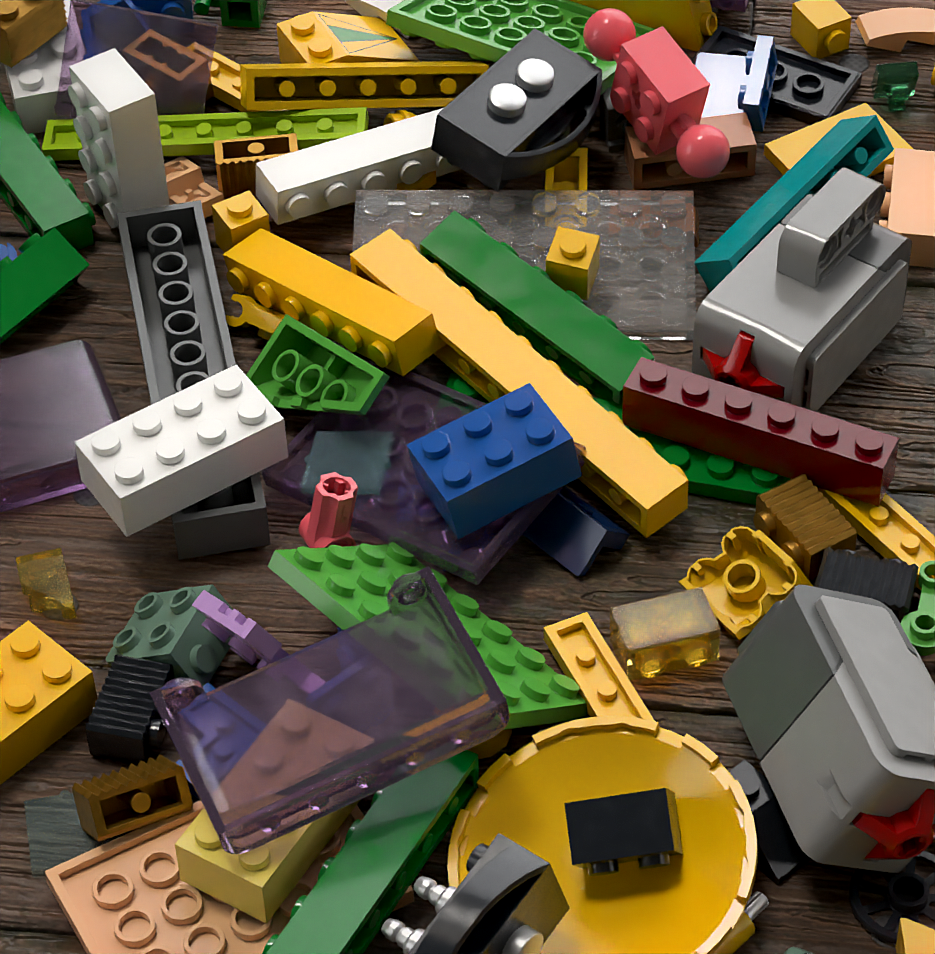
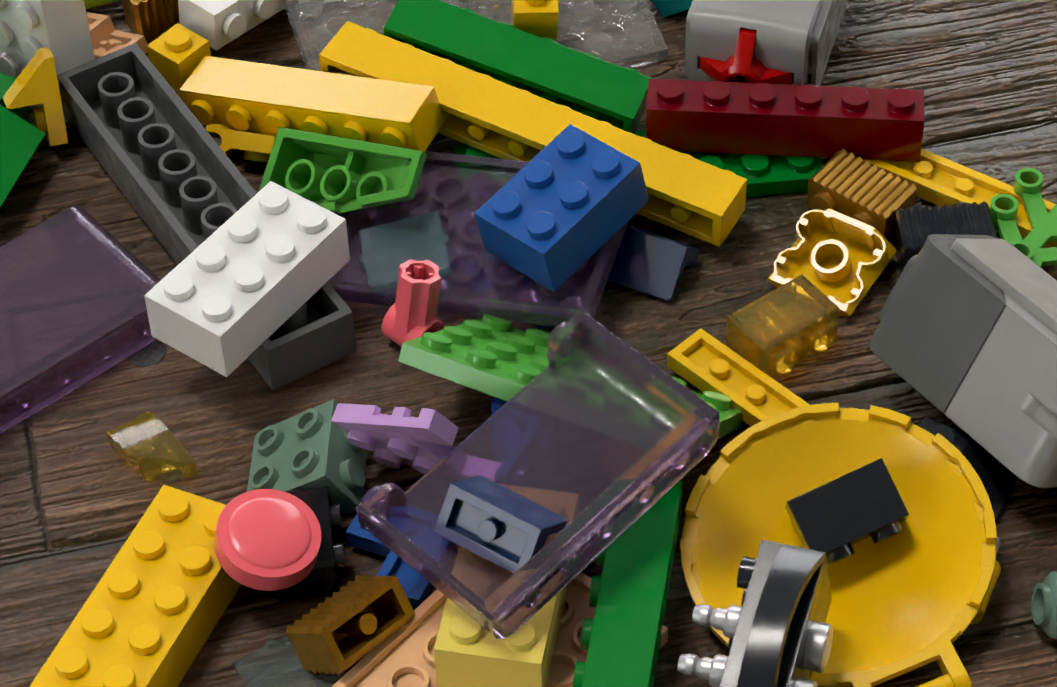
camera: 20 degrees left, 0 degrees up
(87, 698) = (267, 539): none -> coral piece
(99, 220) = (40, 86): none -> yellow slope
(270, 740) = (496, 522): none -> dark blue panel

